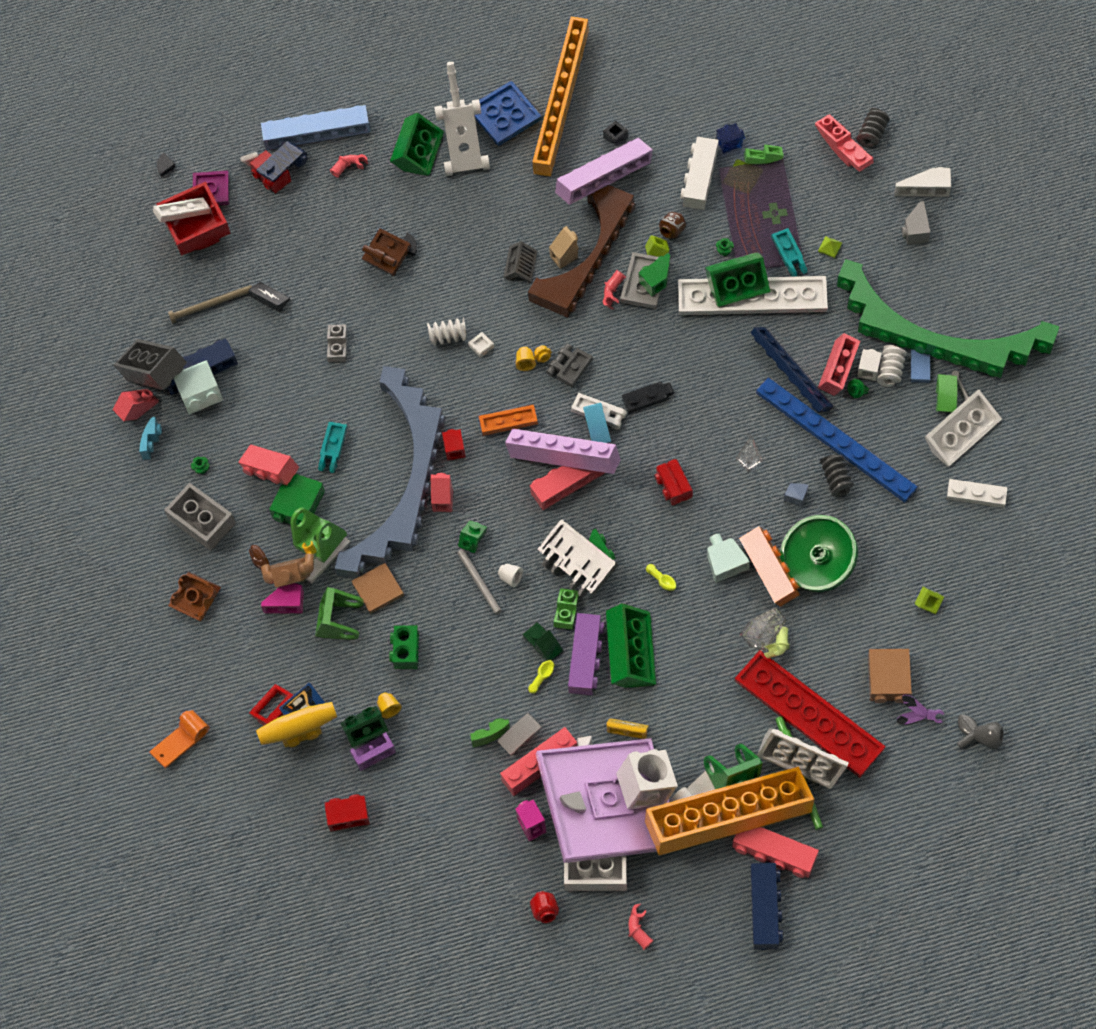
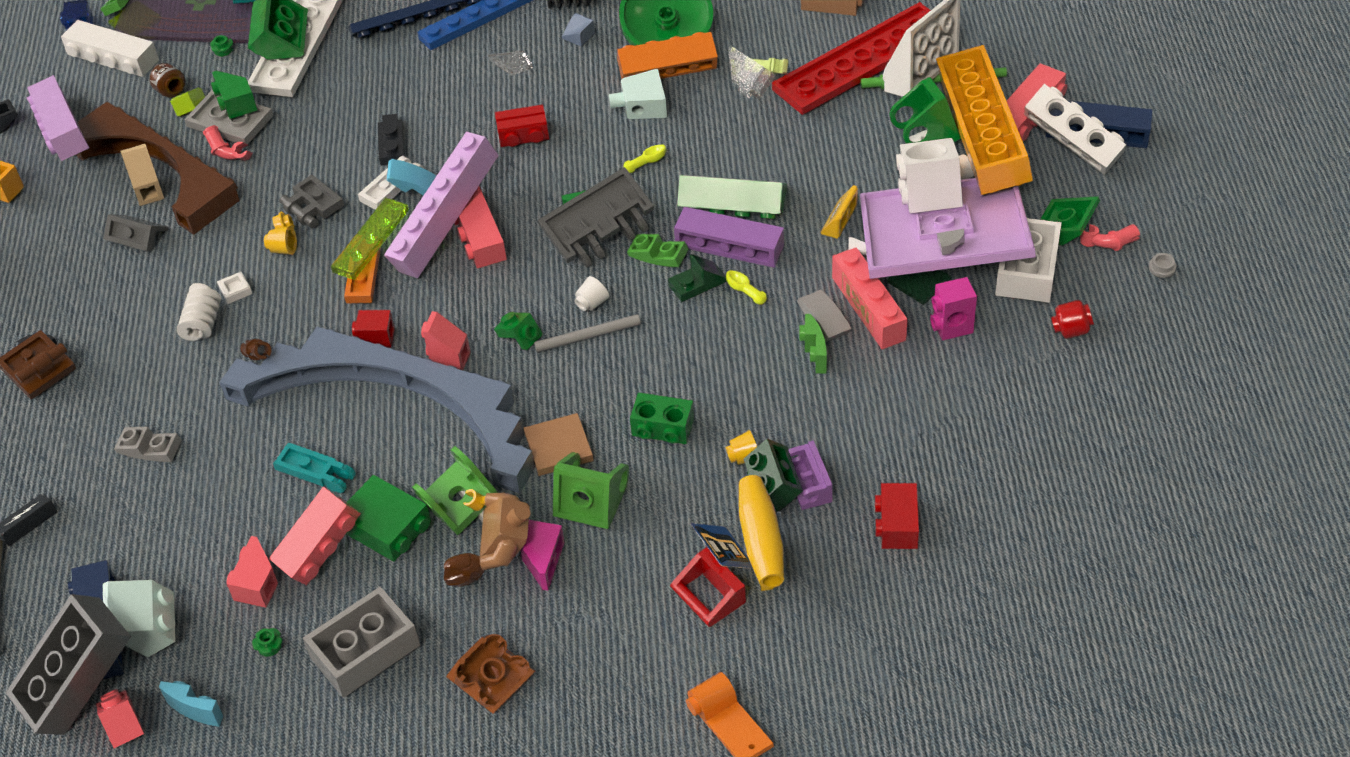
camera: 80 degrees left, 15 degrees down
(240, 438) = (253, 576): none -> coral slope
(416, 377) = (255, 349): none -> reddish brown pin
(532, 414) = (369, 238): none -> clear neon green tile
(616, 969) = (1162, 265): none -> light grey plate
(651, 892) = (1073, 215): none -> green slope
(728, 888) = (1100, 157): none -> white brick

